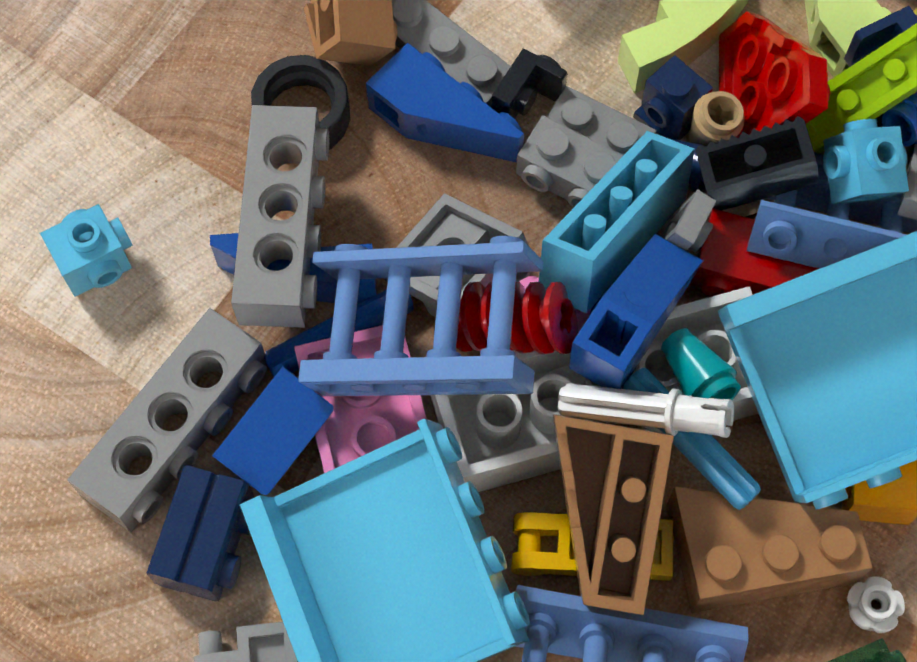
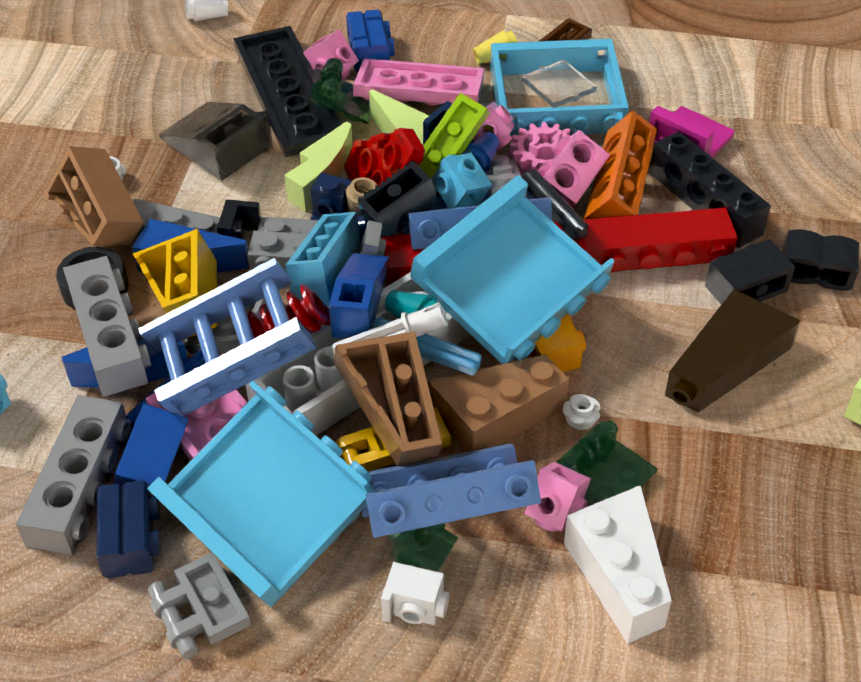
camera: 25 degrees left, 20 degrees down
(409, 170) = (179, 270): none -> yellow wedge

